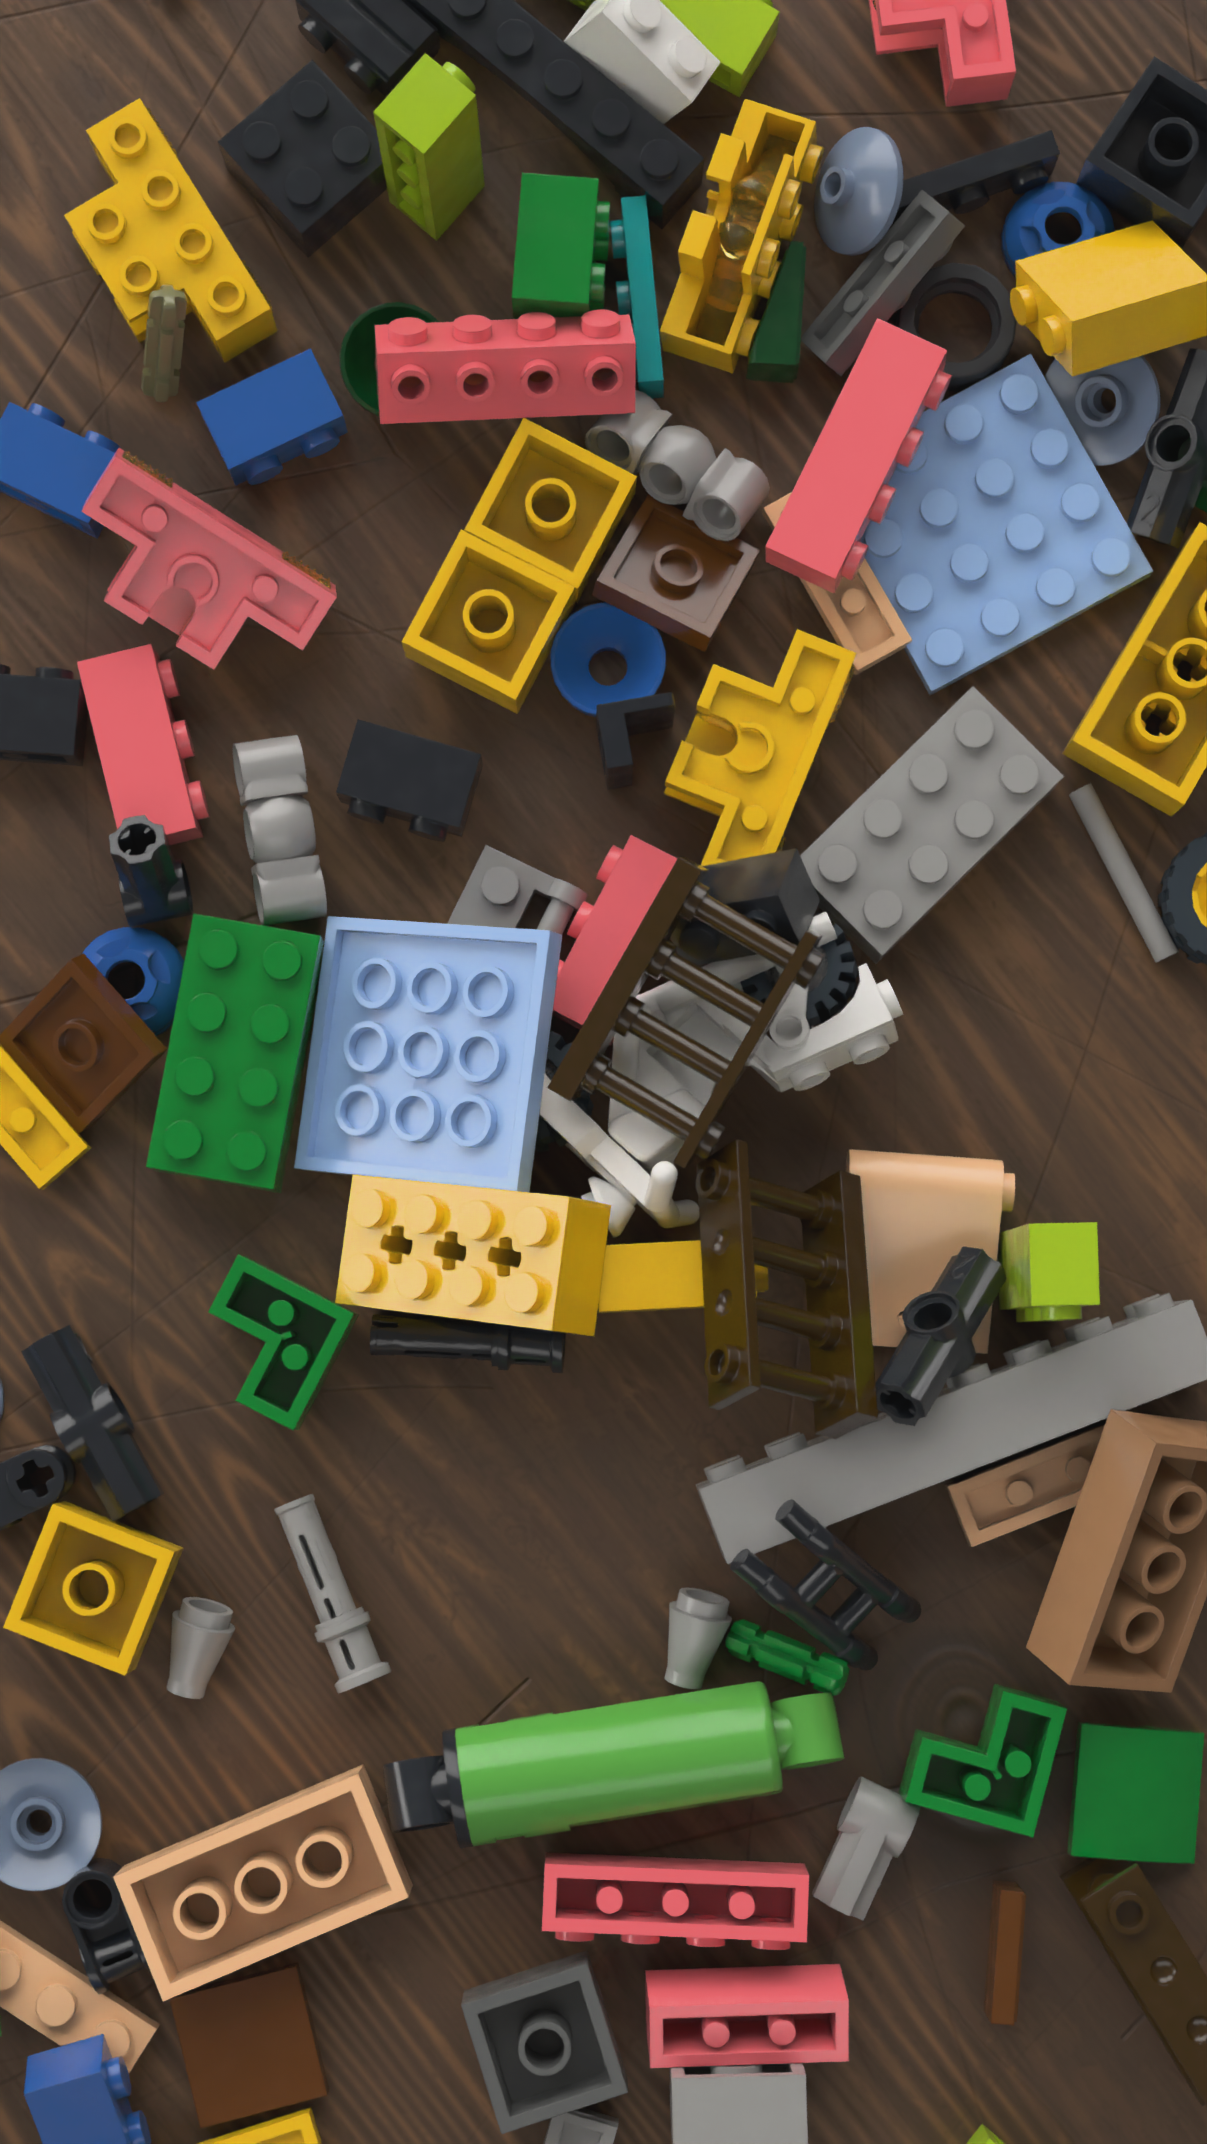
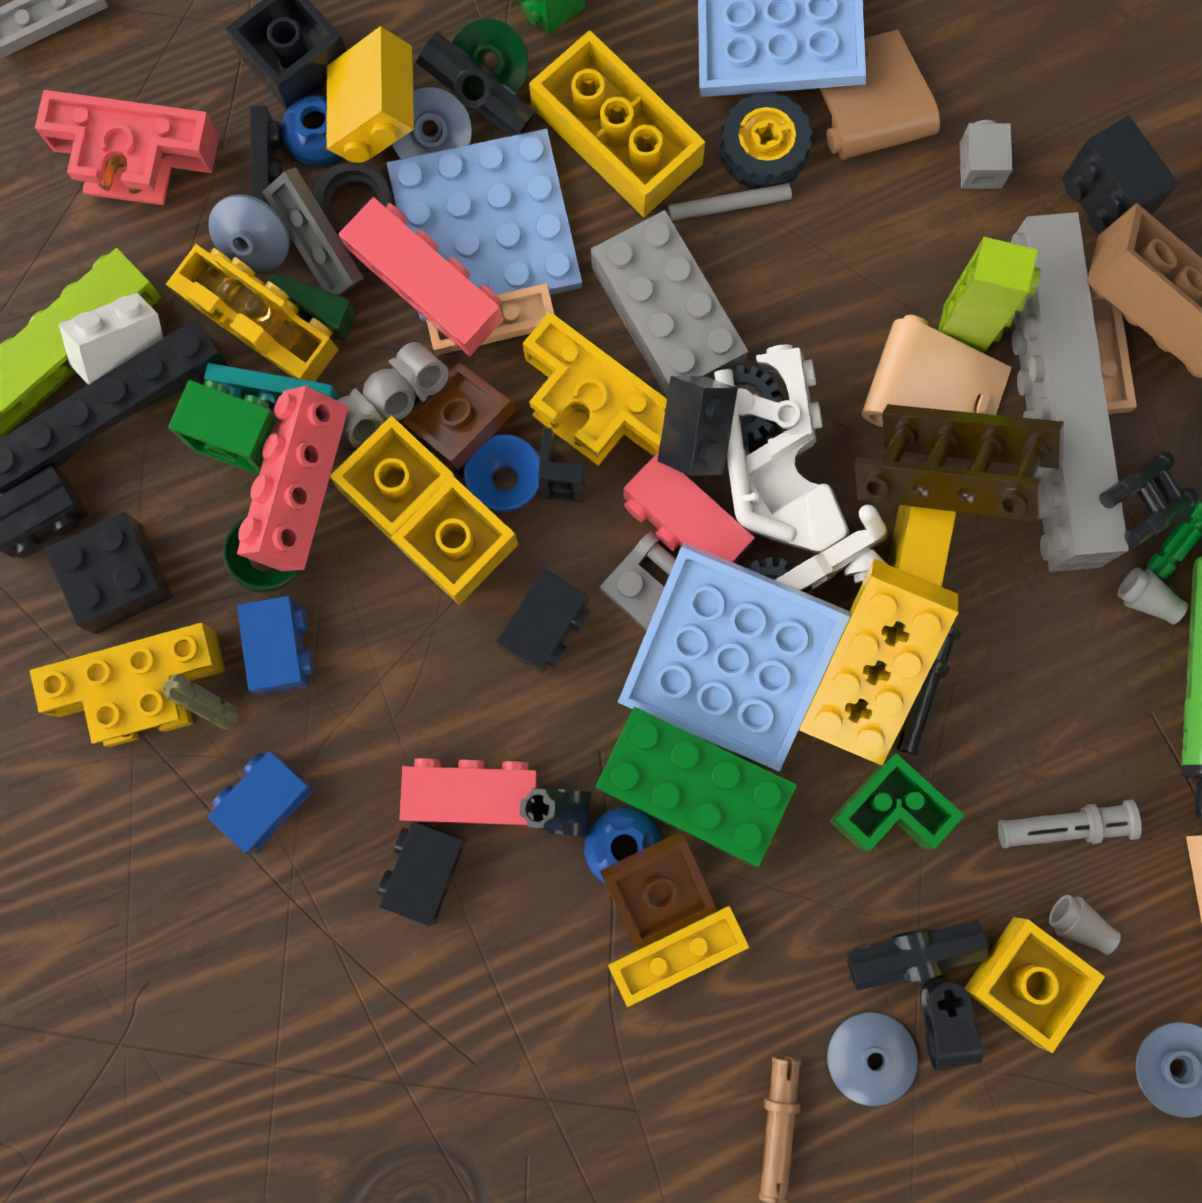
camera: 70 degrees left, 5 degrees down
(199, 566) = (361, 719): coral piece -> none
(279, 830) = (551, 717): light grey piece -> none
(431, 144) = (128, 478): lime brick -> none
(655, 956) = (749, 514): dark brown fence -> none
(939, 1335) = (1025, 387): black piece -> none

